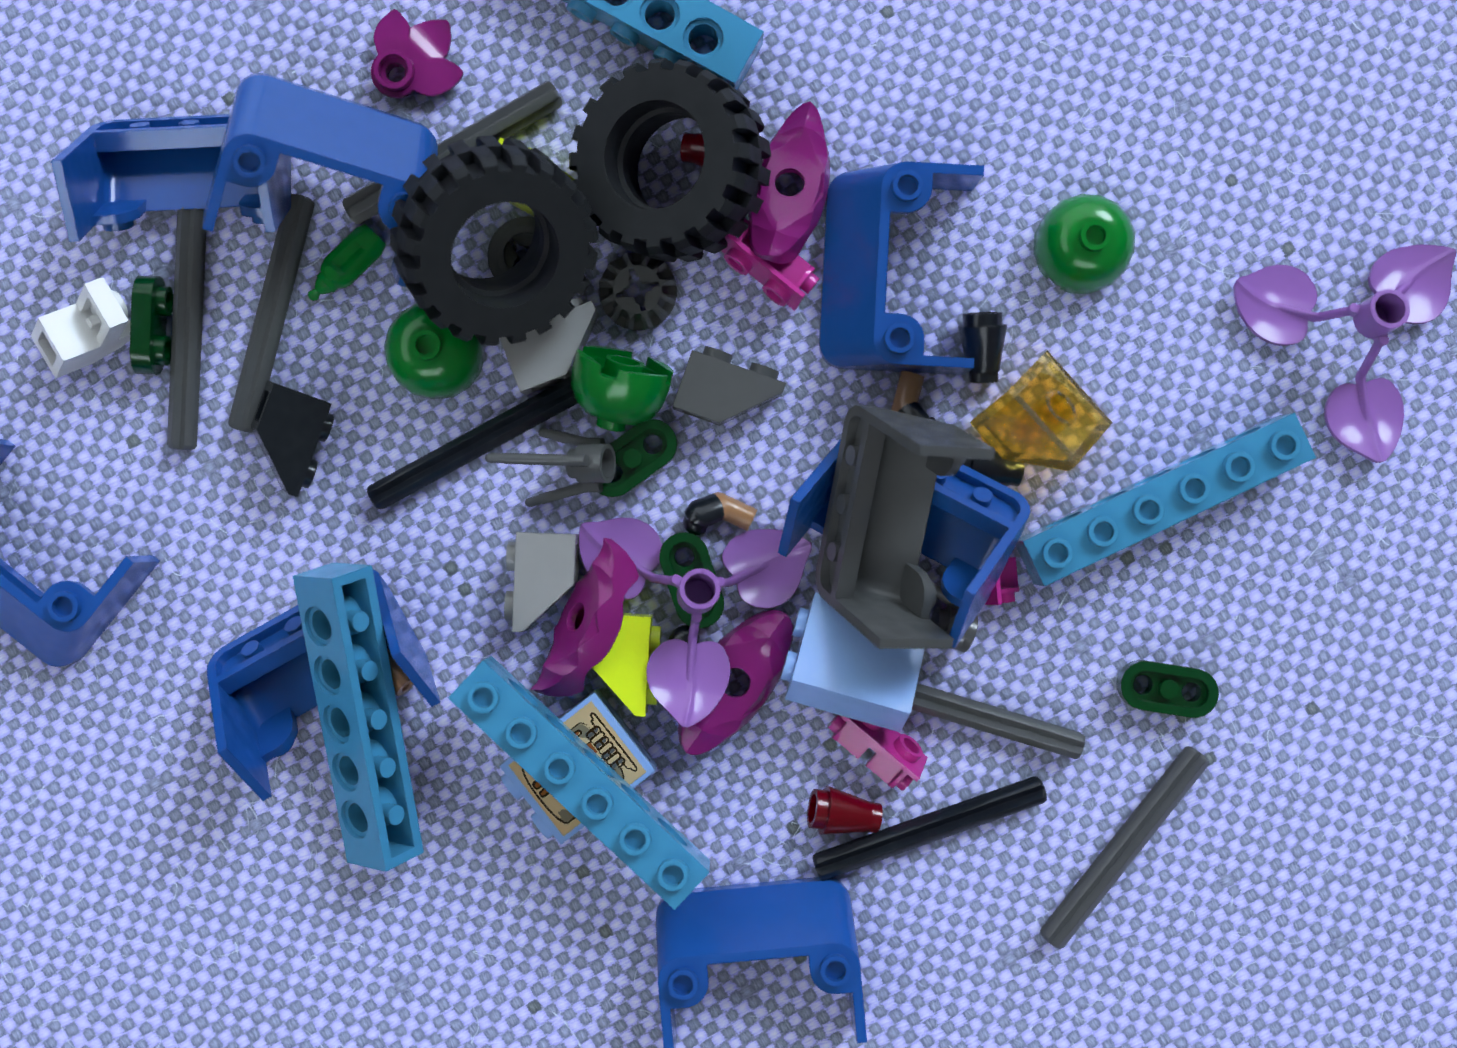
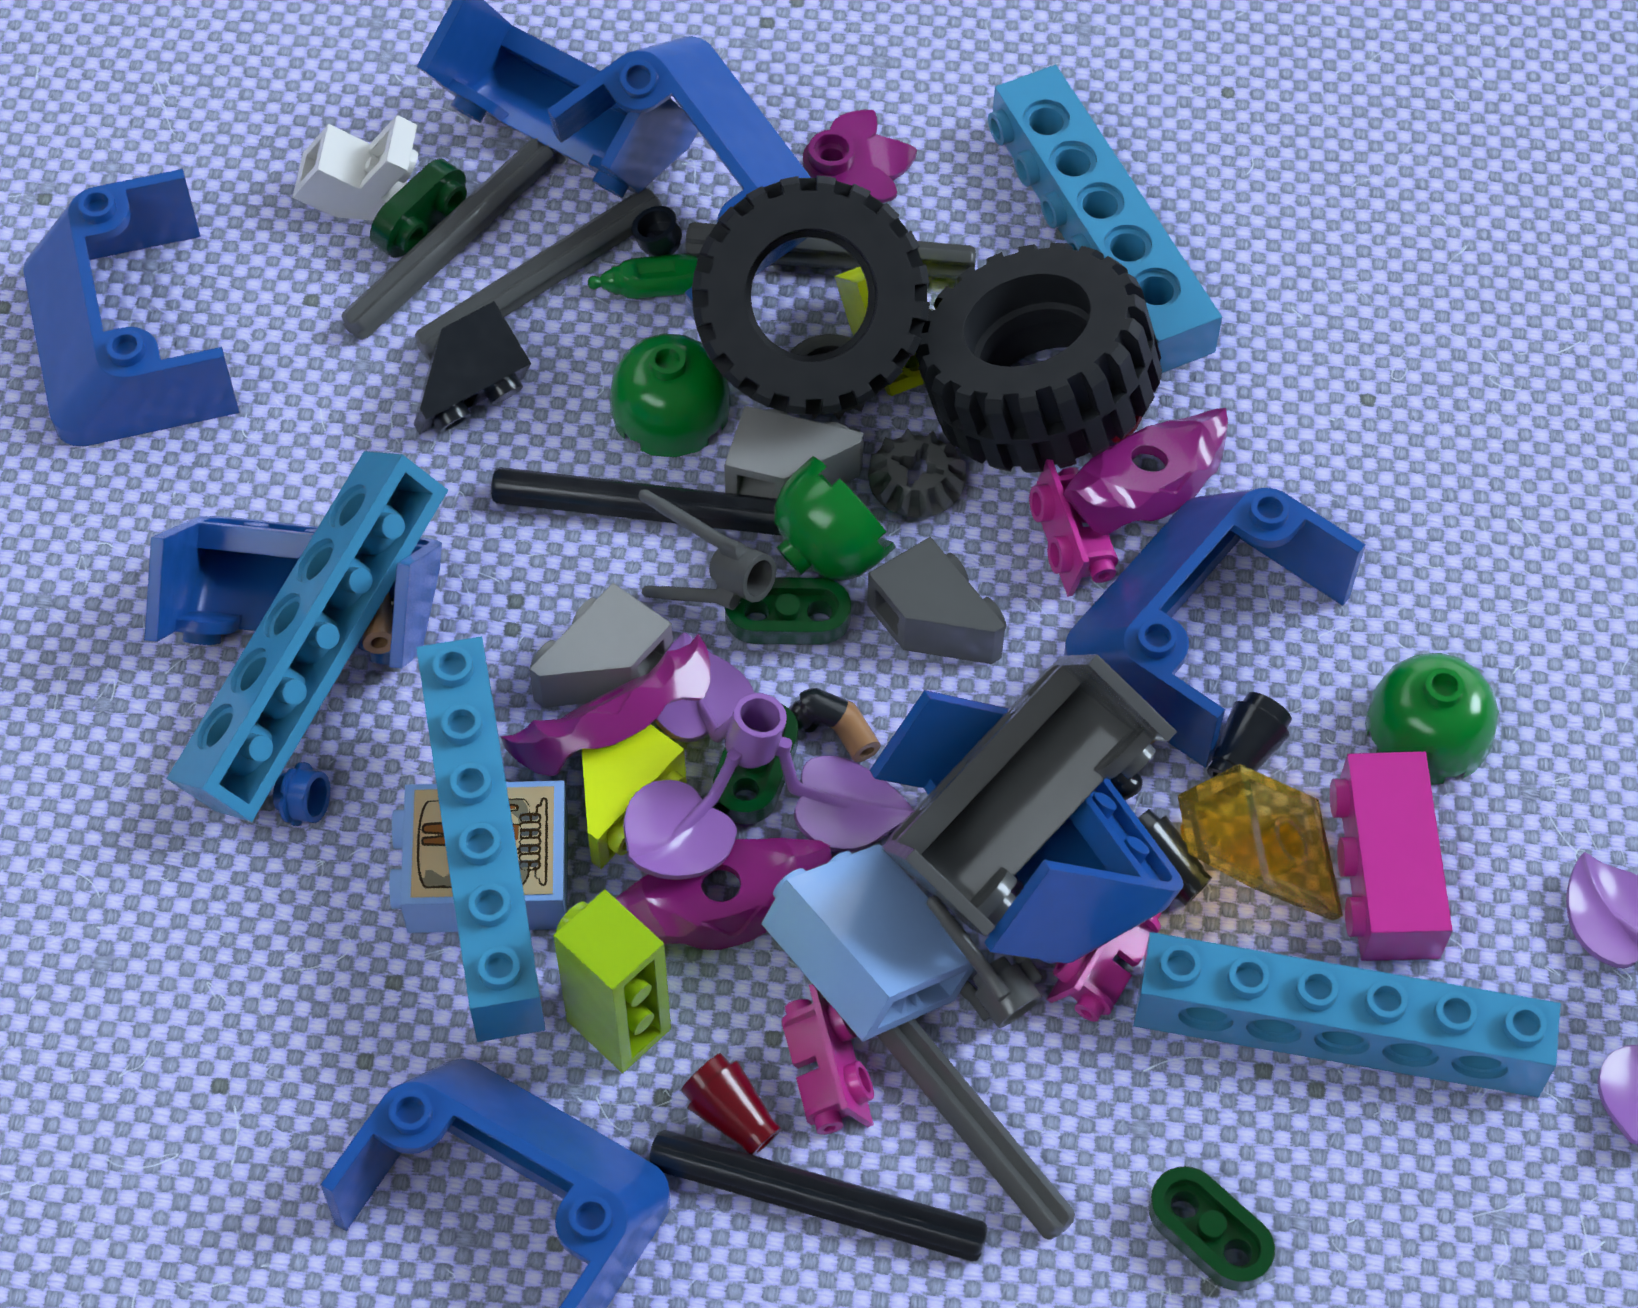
camera: 35 degrees right, 30 degrees down
(321, 217) = (657, 231): none -> black hinge
(434, 803) = (302, 794): none -> blue plate
(732, 815) = (612, 979): none -> lime brick
(1122, 367) = (1391, 857): none -> dark pink brick

